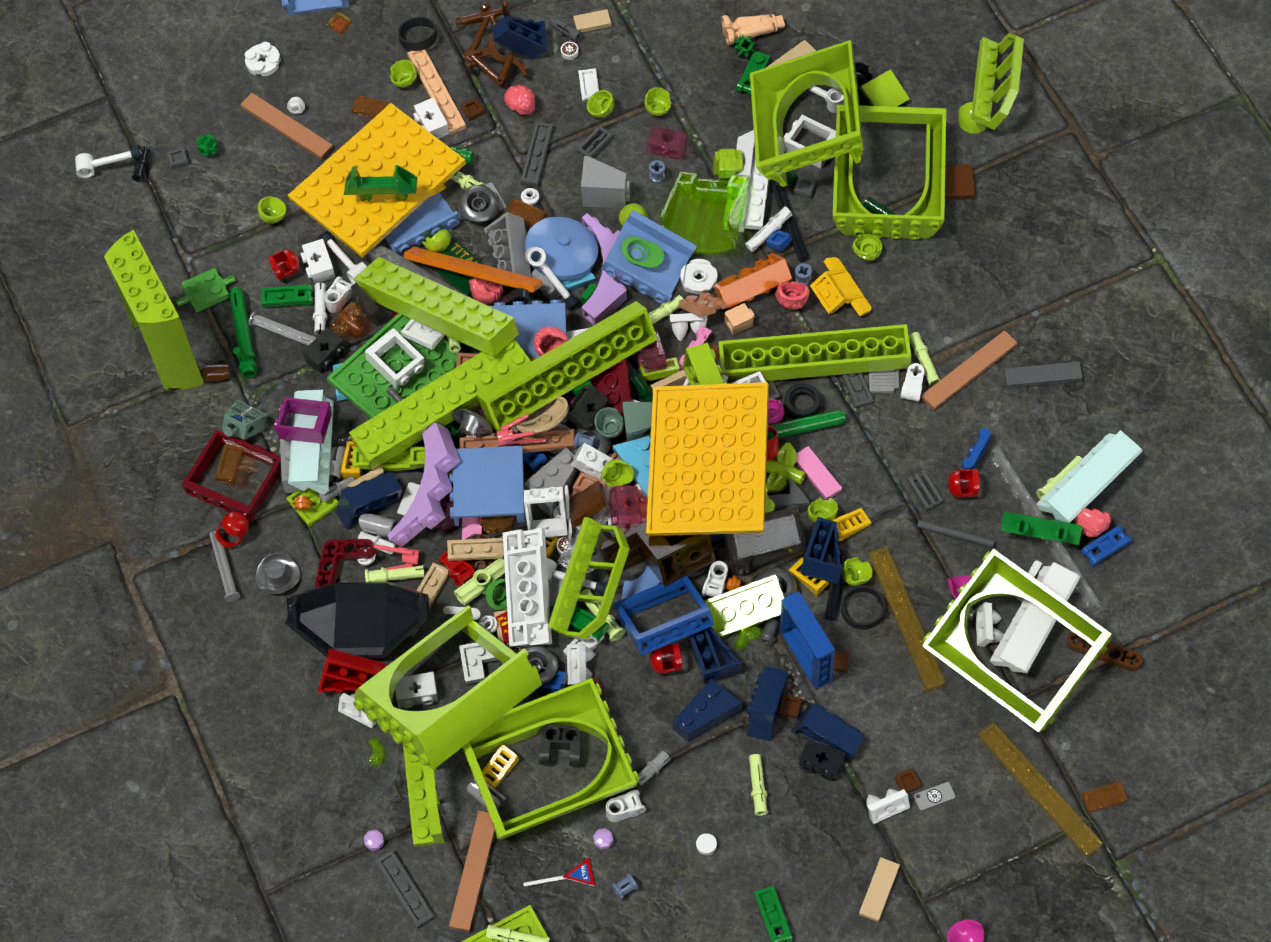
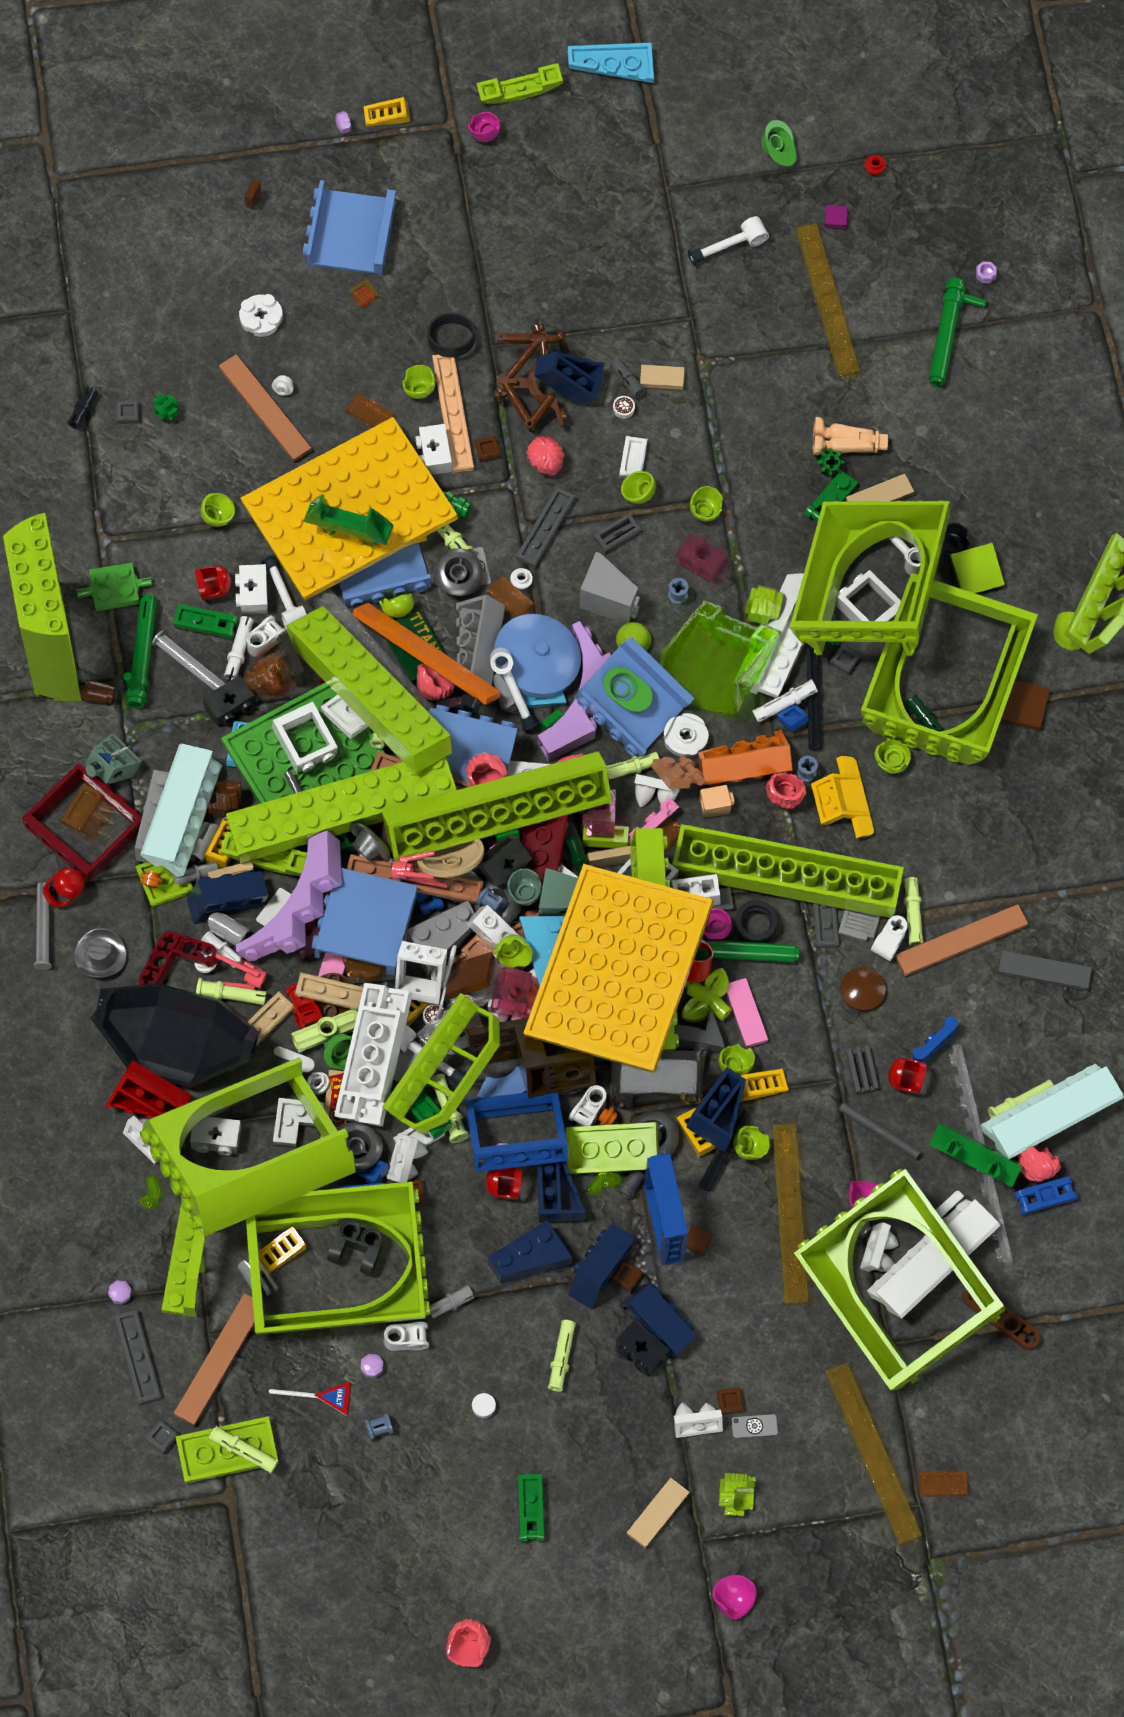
camera: 10 degrees right, 5 degrees up
(85, 164) = (19, 391): white piece -> none
(307, 407) = (171, 762): magenta window -> none
(344, 423) = (226, 798): none -> reddish brown hair
(862, 588) = (745, 1163): black tyre -> none
(904, 428) = (863, 988): none -> reddish brown dish
(939, 853) = (736, 1493): none -> lime hair

